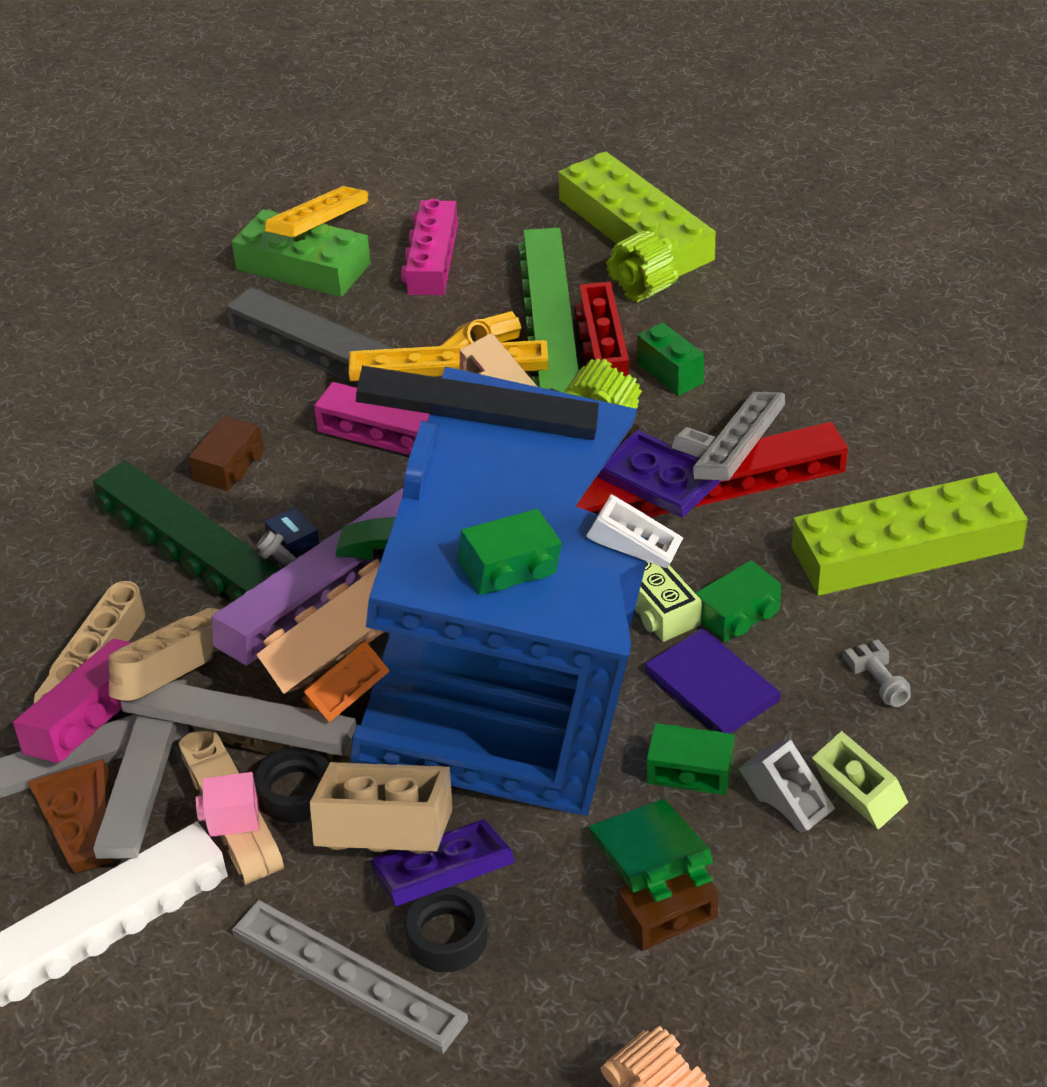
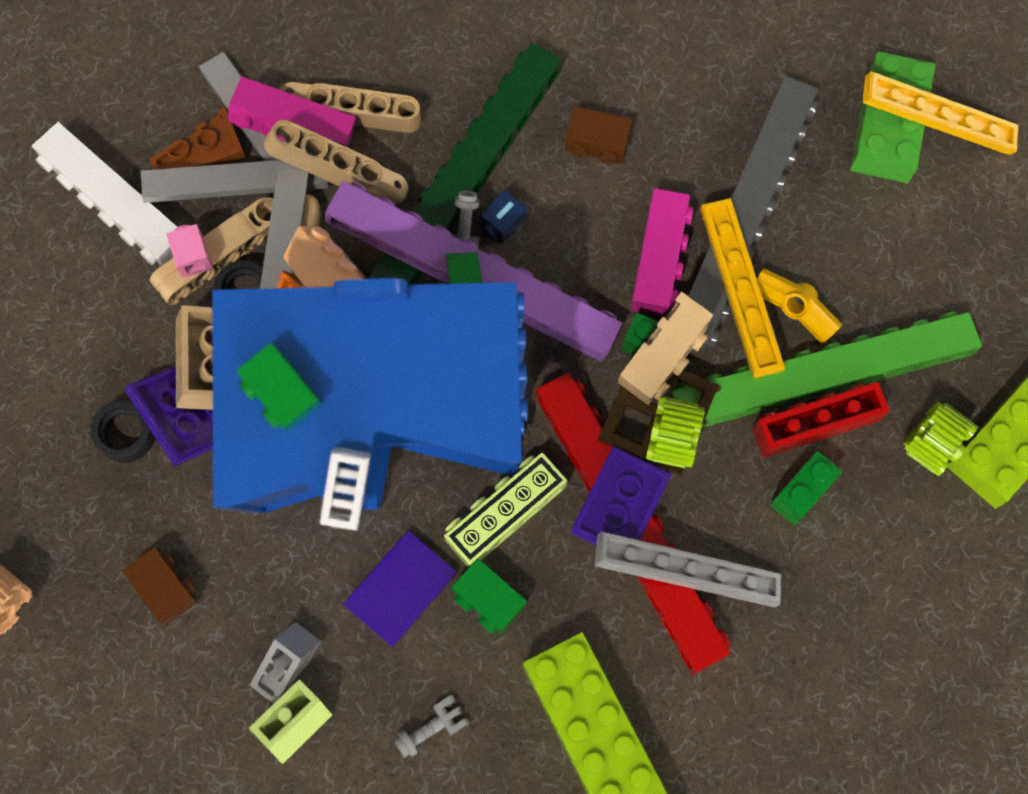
camera: 75 degrees right, 30 degrees up
(351, 976) = (83, 375): light grey tile -> none
(430, 248) = (934, 231): dark pink brick -> none
(477, 402) = (468, 321): black tile -> none
(652, 848) = (196, 566): green tile -> none
(690, 759) = (305, 582): green brick -> none
(692, 442) = (660, 528): light grey tile -> none

